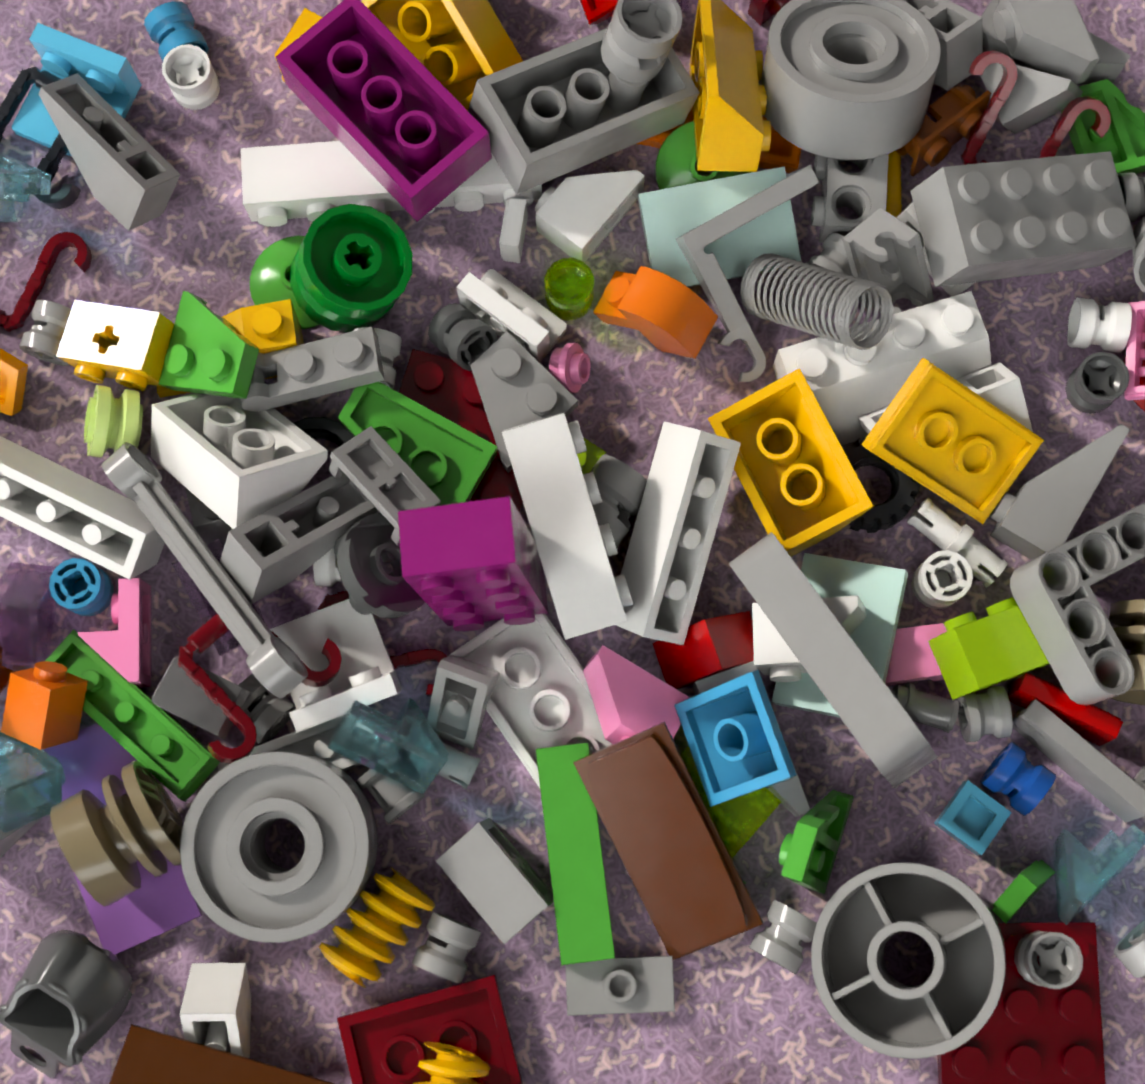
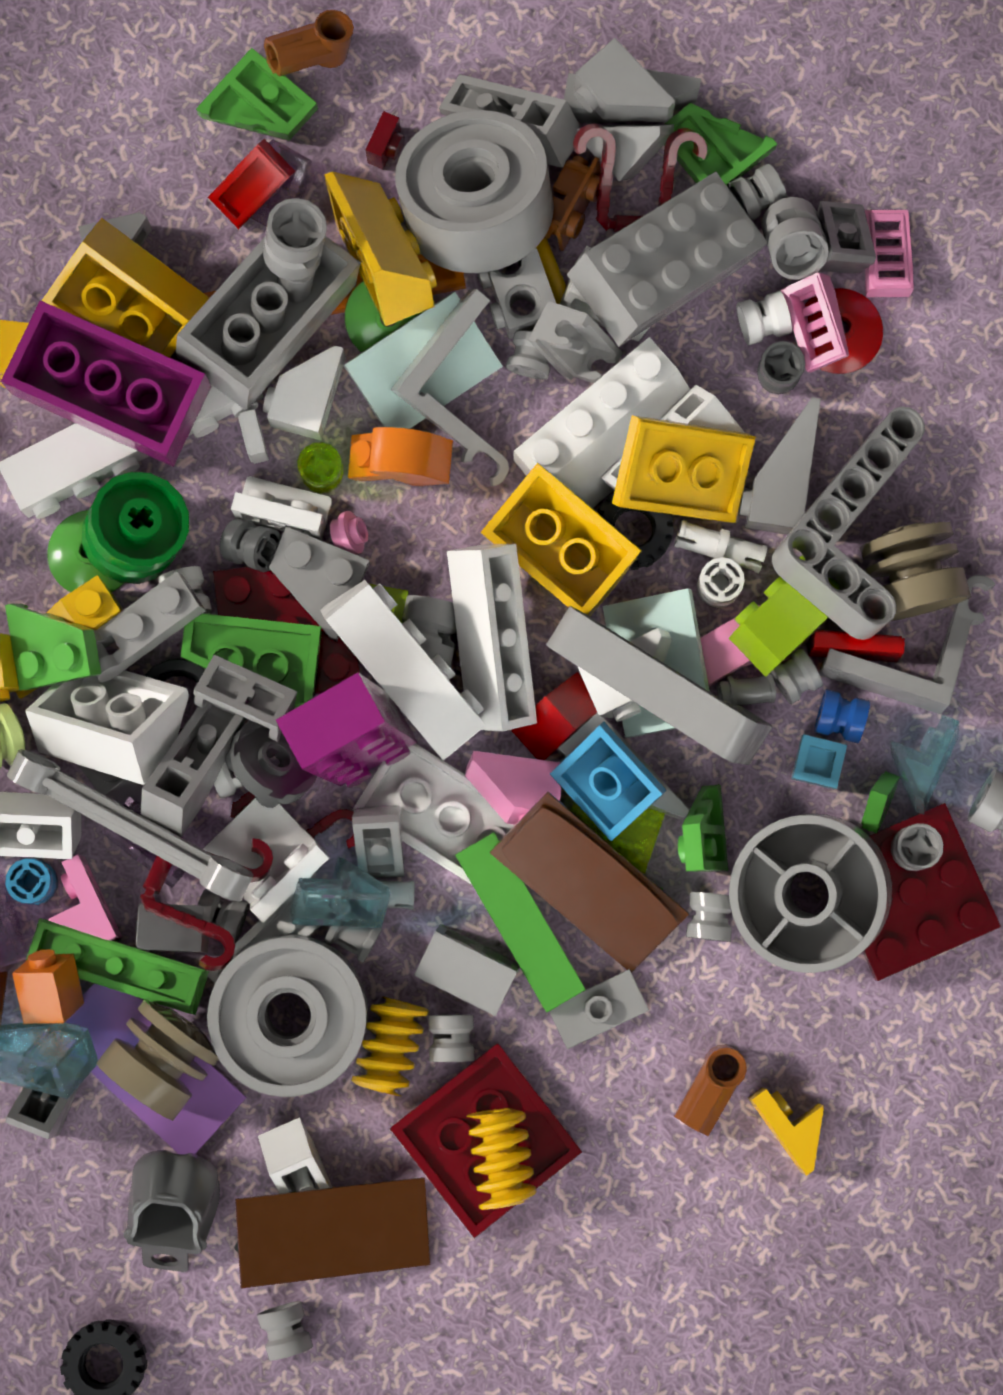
camera: 25 degrees left, 5 degrees up
(842, 307) = (506, 397): light grey piece -> none

